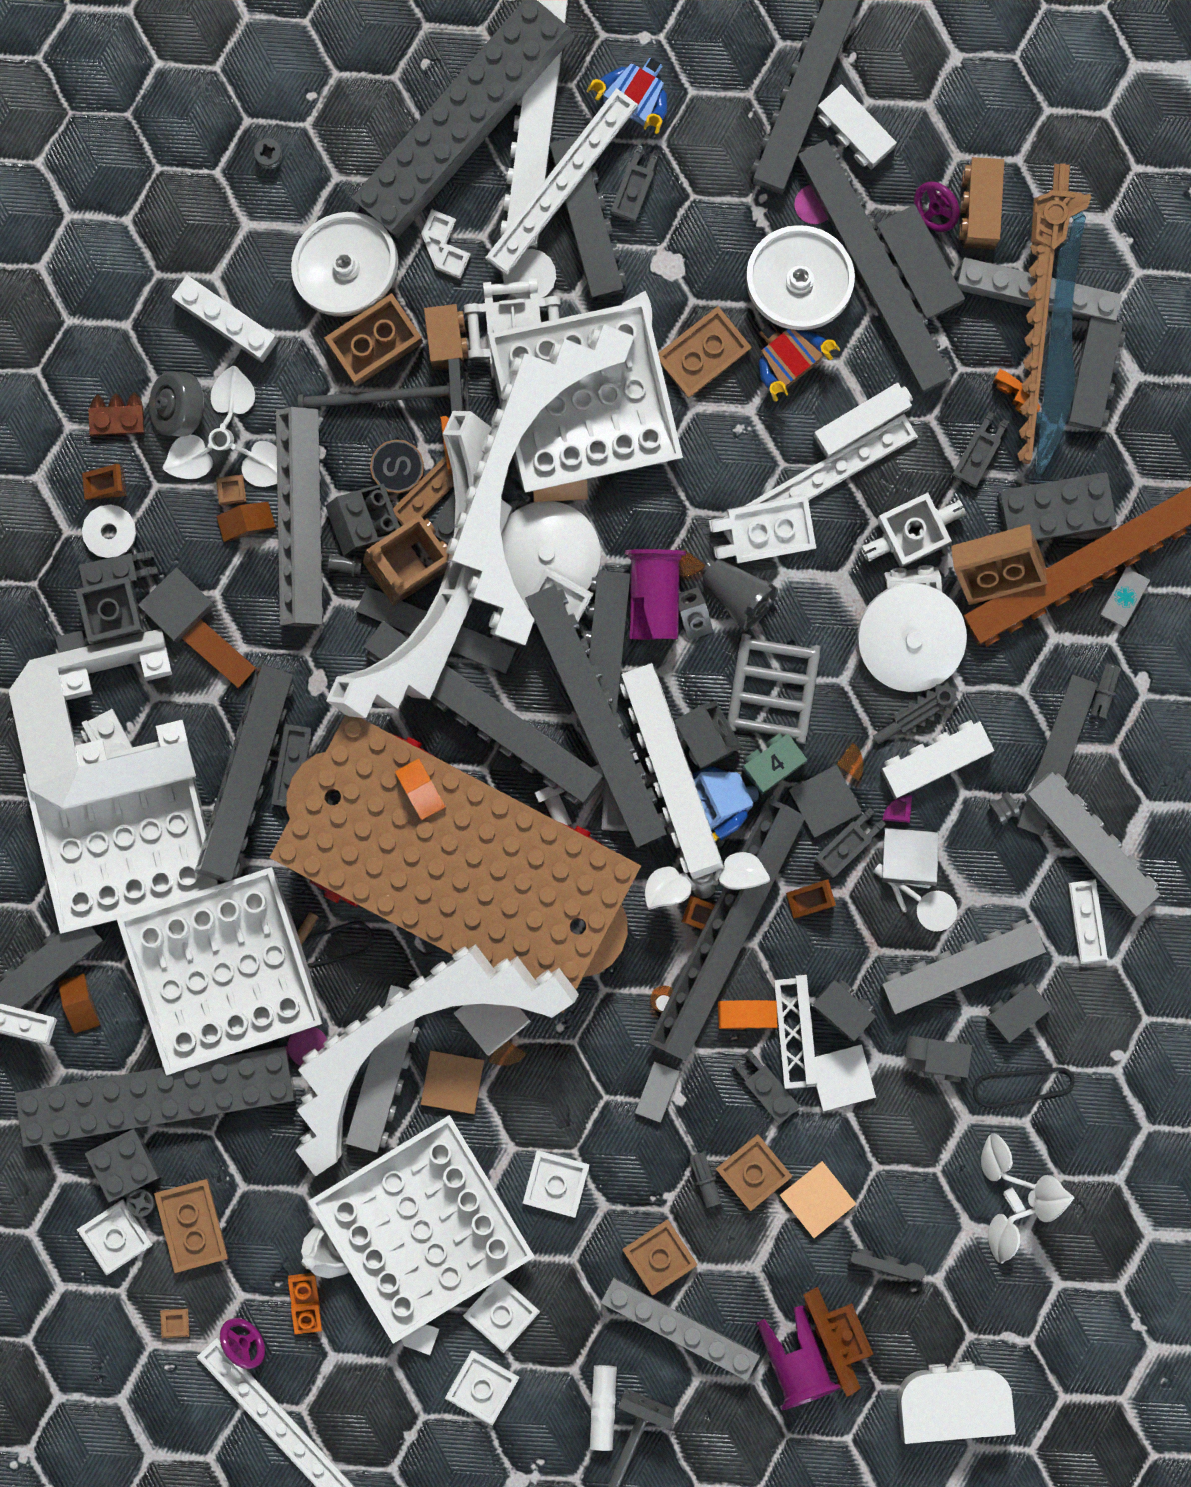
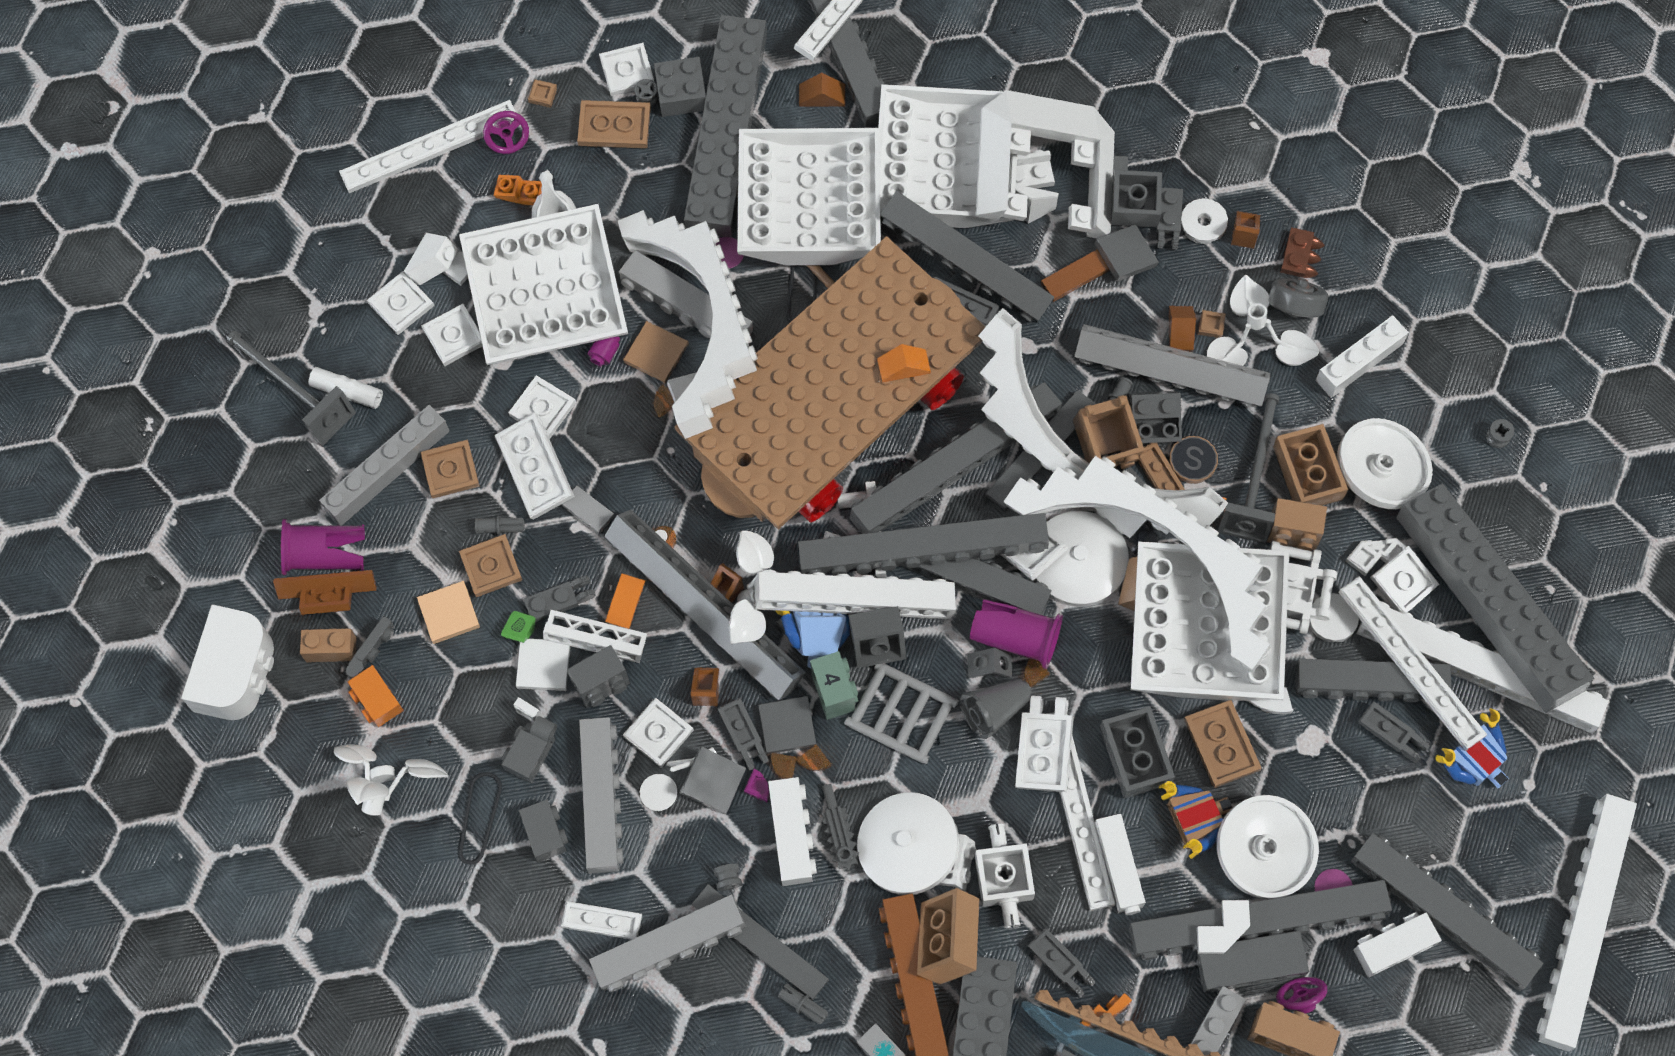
camera: 110 degrees right, 15 degrees down
(145, 722) = (1038, 203): none -> white slope
(422, 1370) = (431, 258): none -> white slope
(467, 212) = (1404, 580): none -> white tile
(474, 1137) = (603, 351): none -> magenta brick
(627, 1166) = (534, 466): none -> white tile
(743, 434) = (1136, 752): none -> dark grey brick
(813, 1116) = (519, 627): none -> bright green slope
(869, 790) = (783, 765): none -> clear orange tile
(875, 932) = (658, 732): none -> white tile
(897, 1311) = (327, 645): none -> medium nougat brick
(899, 1074) = (526, 710): none -> white tile
(911, 296) = (1220, 938): none -> white tile
(936, 1240) = (375, 696): none -> orange brick

